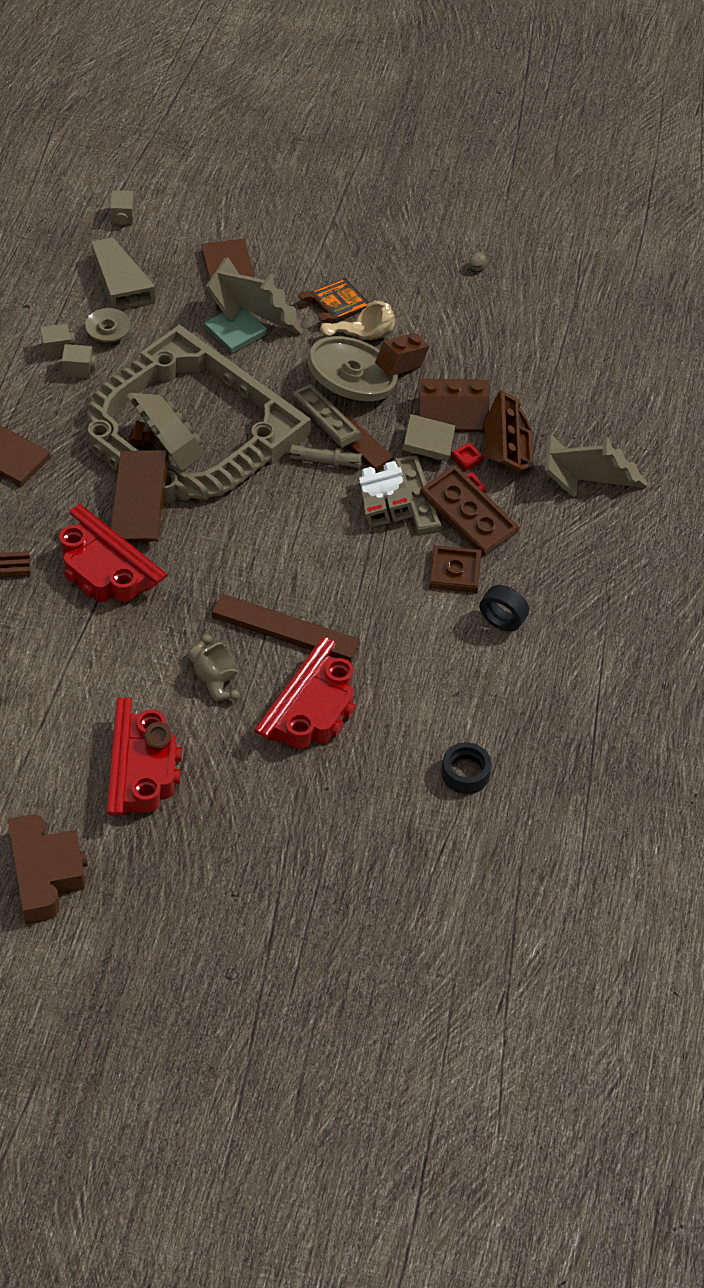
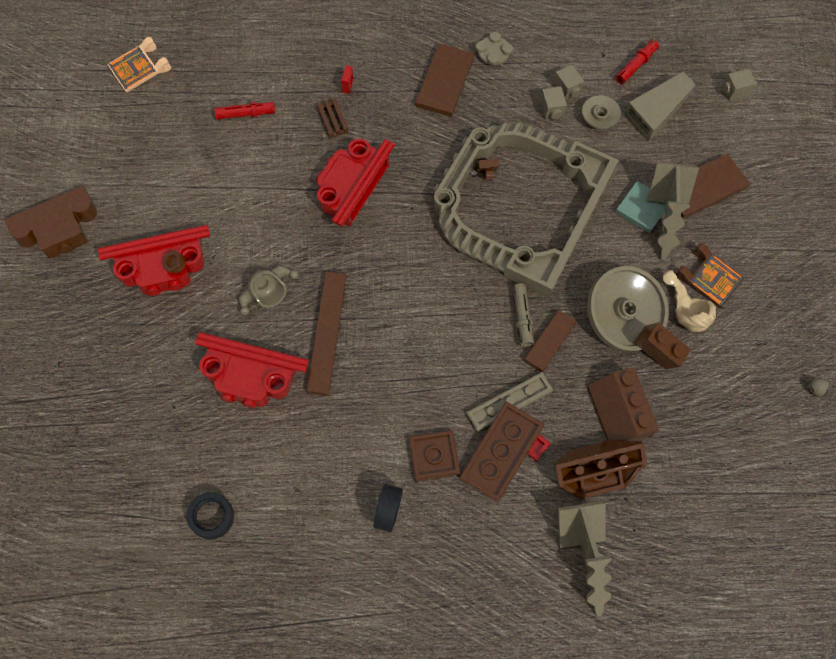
camera: 75 degrees right, 15 degrees up
(49, 272) = (642, 56): none -> red pin
(140, 495) = (420, 183): reddish brown tile -> none
(169, 428) = (493, 181): dark tan wedge -> none
(326, 415) = (566, 304): dark tan tile -> none
(381, 487) = (492, 373): hips -> none
(429, 437) = (574, 394): dark tan tile -> none
(467, 456) = (570, 435): red tile -> none

